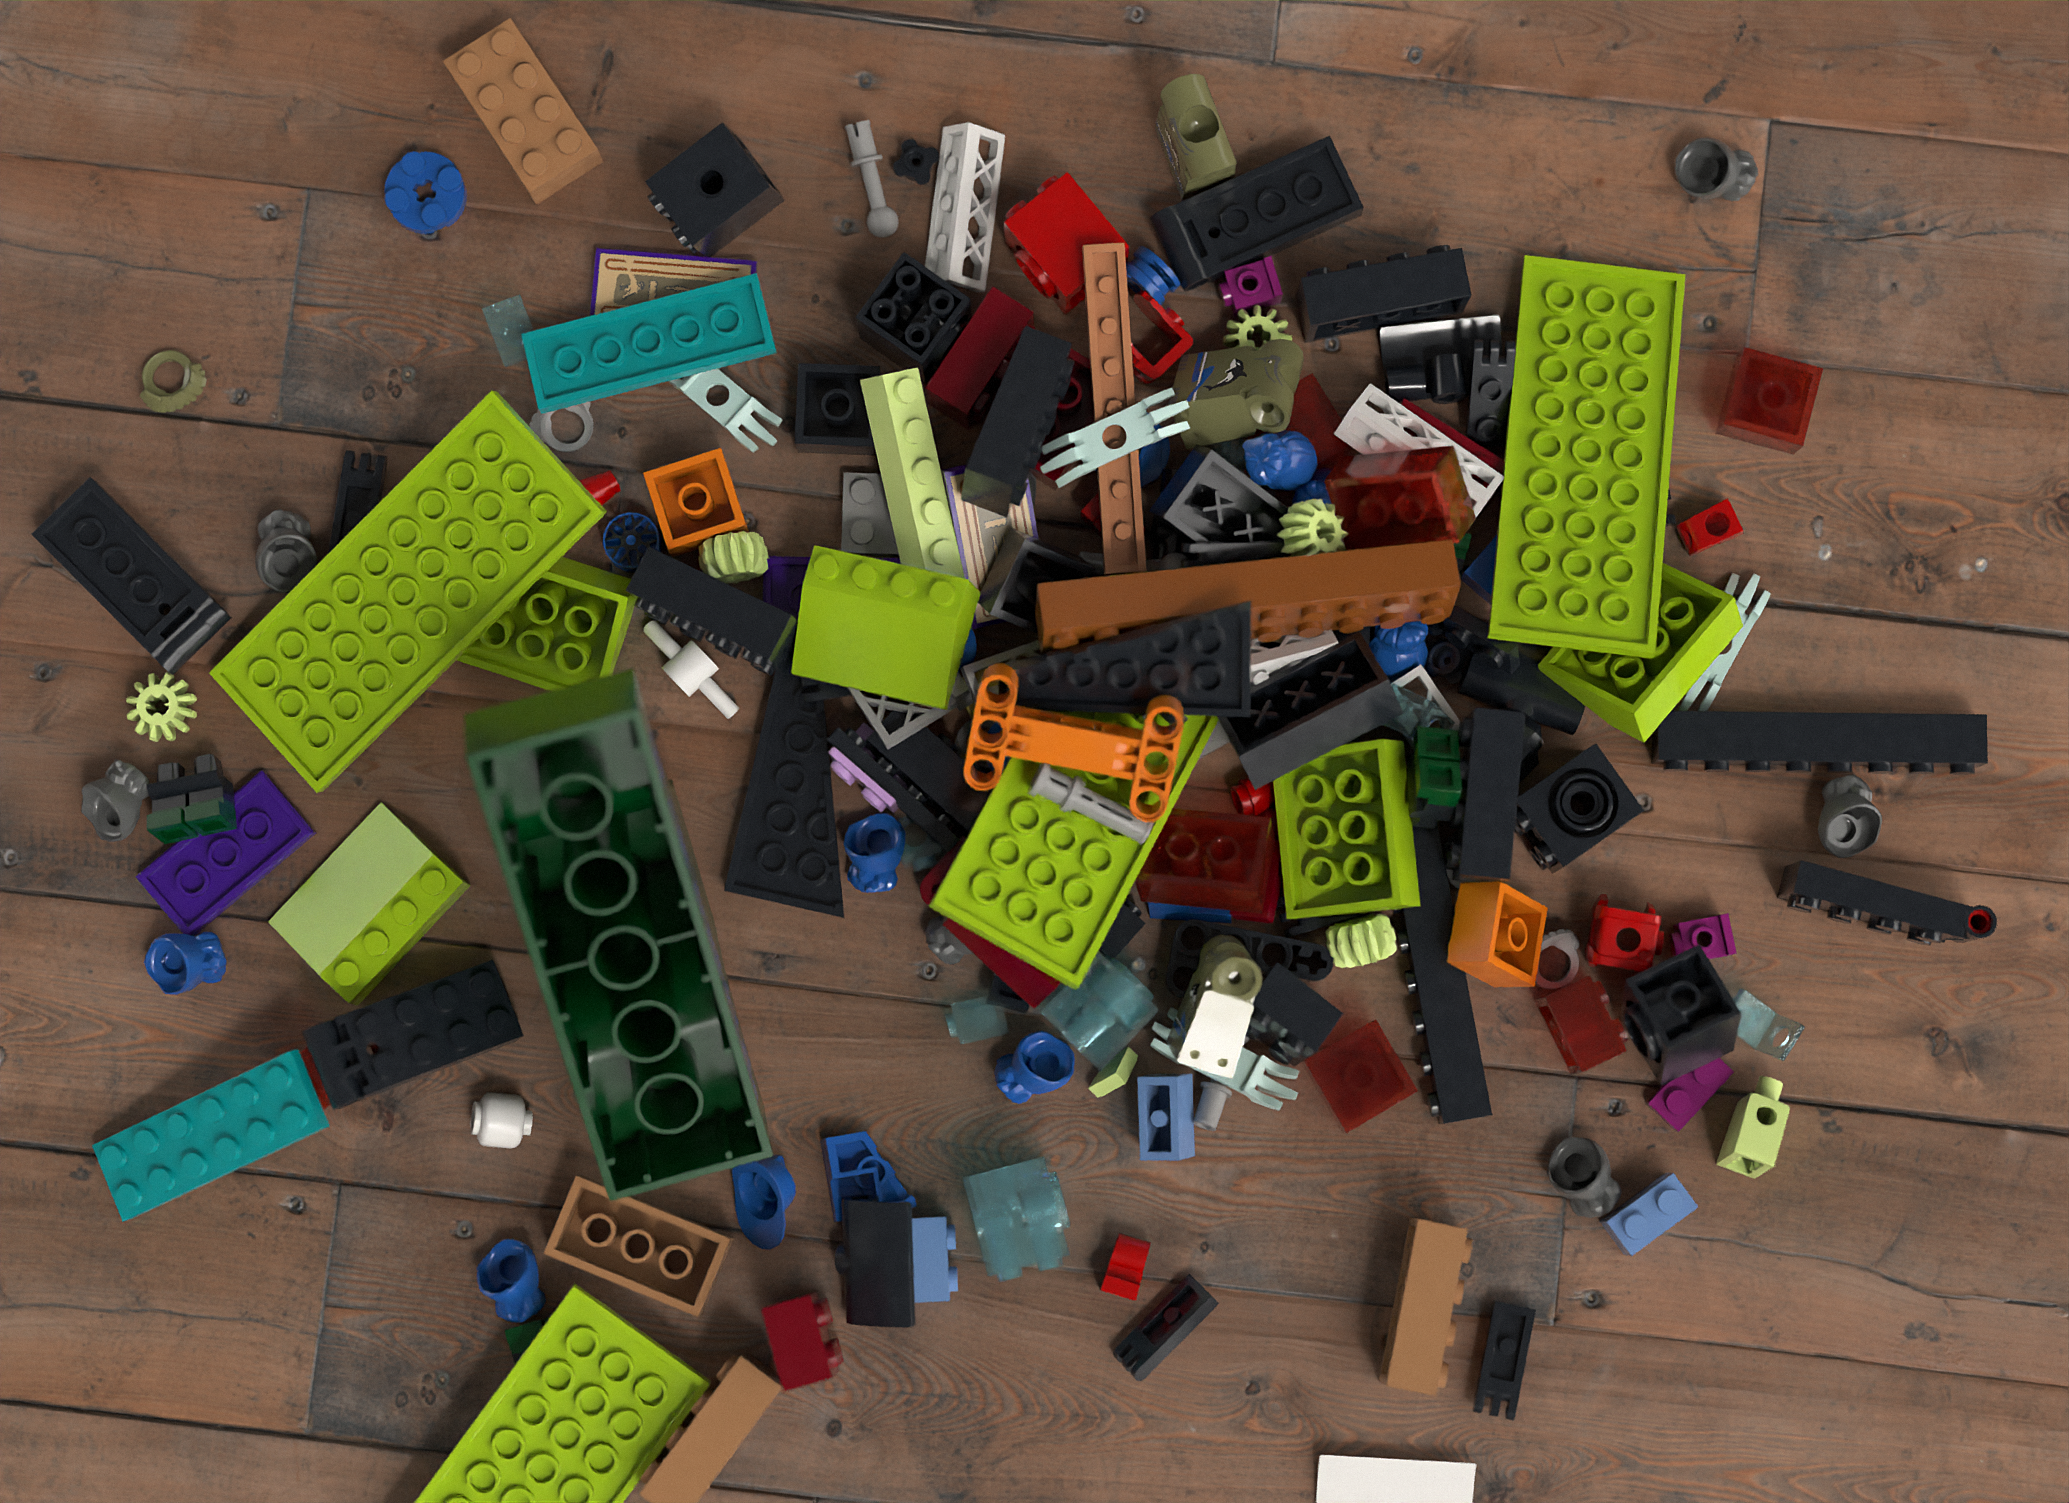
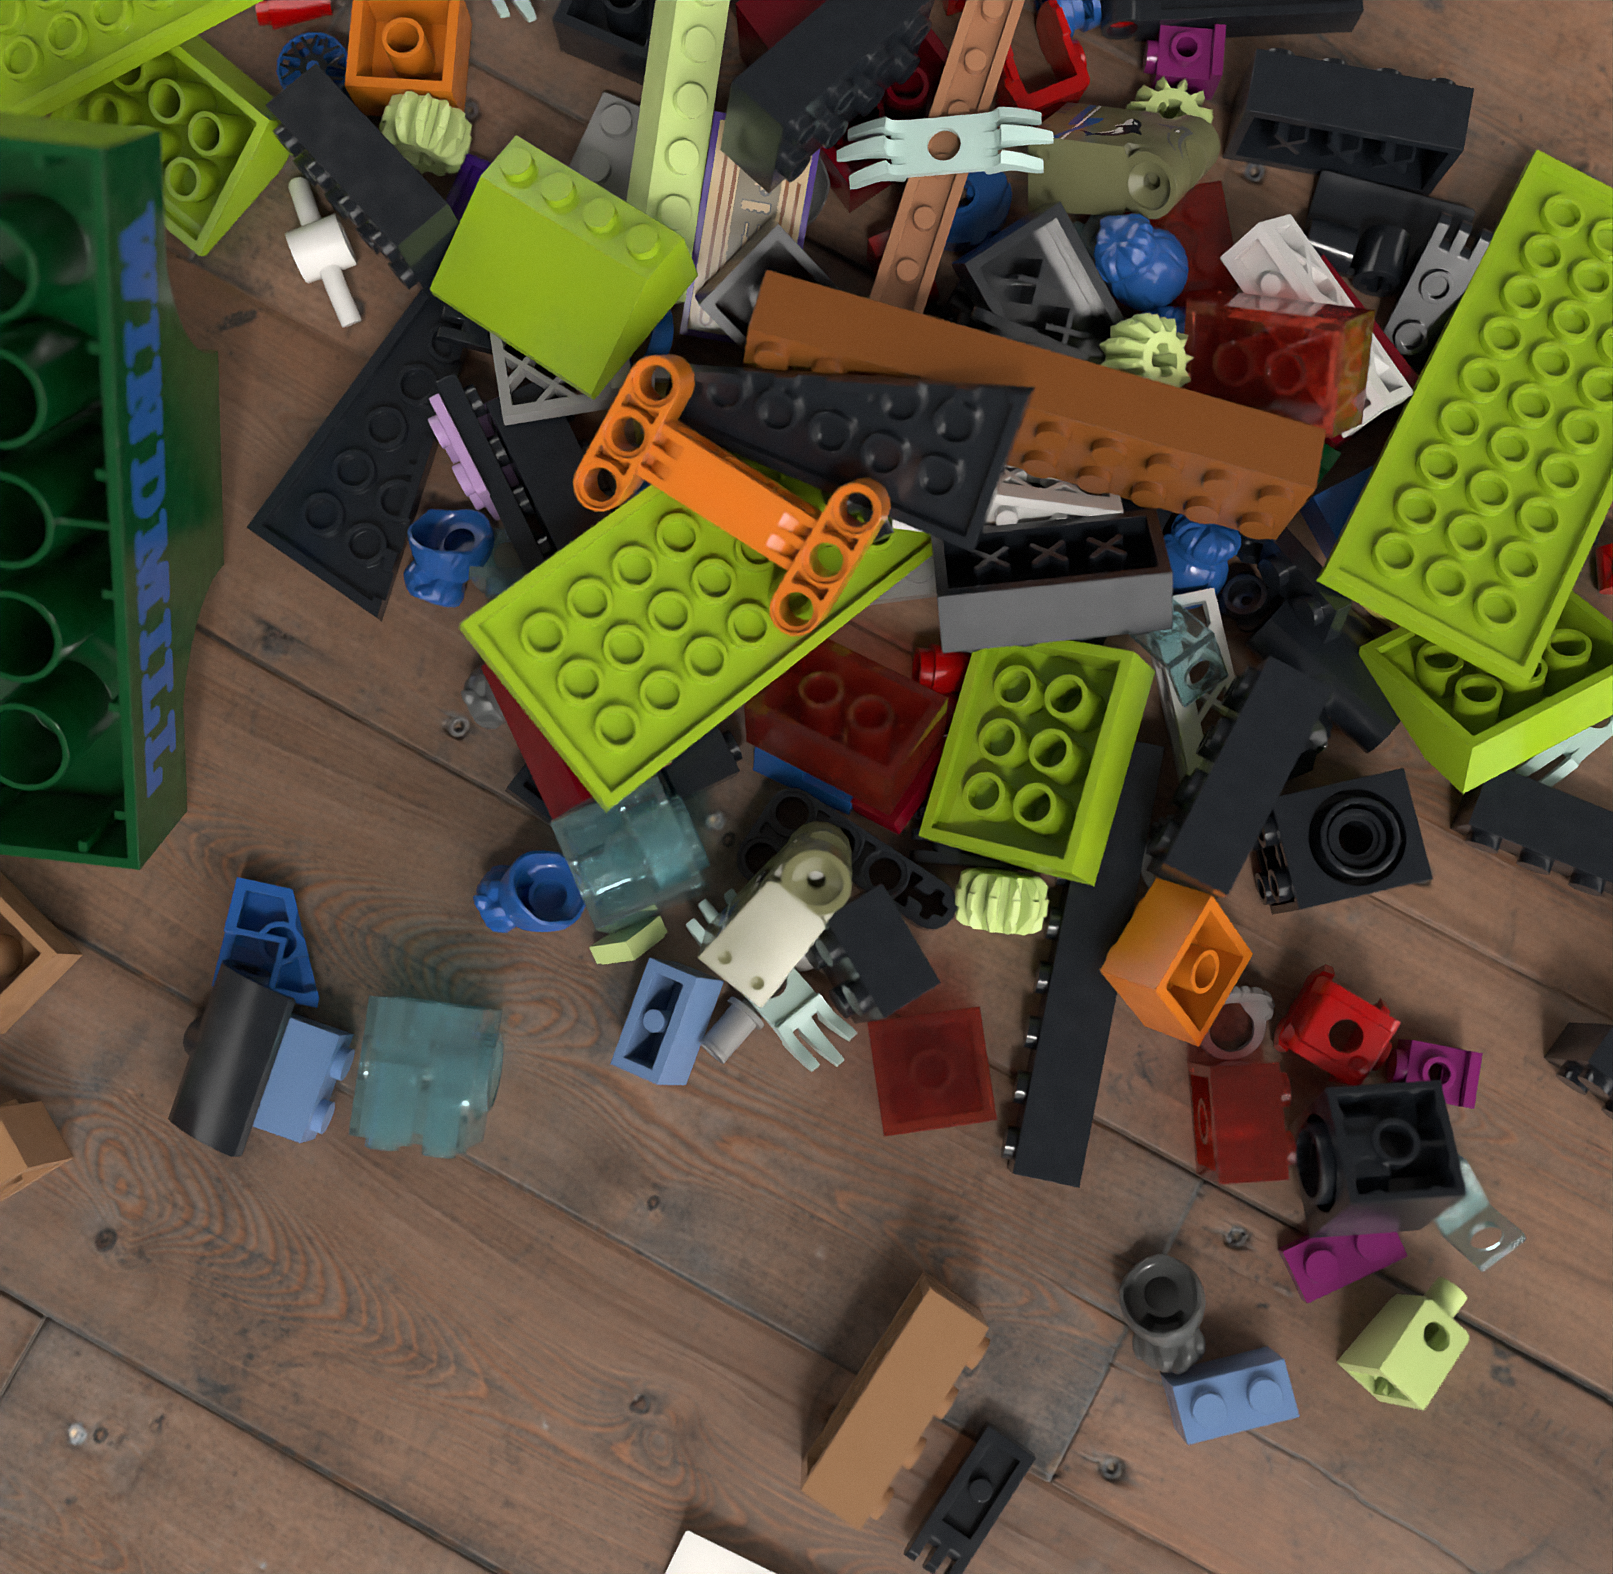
camera: 25 degrees right, 0 degrees up
(761, 1197) = (136, 915): blue piece -> none
(802, 1340) = (84, 1119): dark red brick -> none
(976, 1021) = (484, 809): clear light blue bracket -> none
(1073, 795) = (703, 561): light grey pin -> none
(1125, 1267) = (540, 1191): red leg -> none
(1165, 1328) = (559, 1286): black hinge -> none
(1433, 776) = (1178, 727): dark green hips -> none

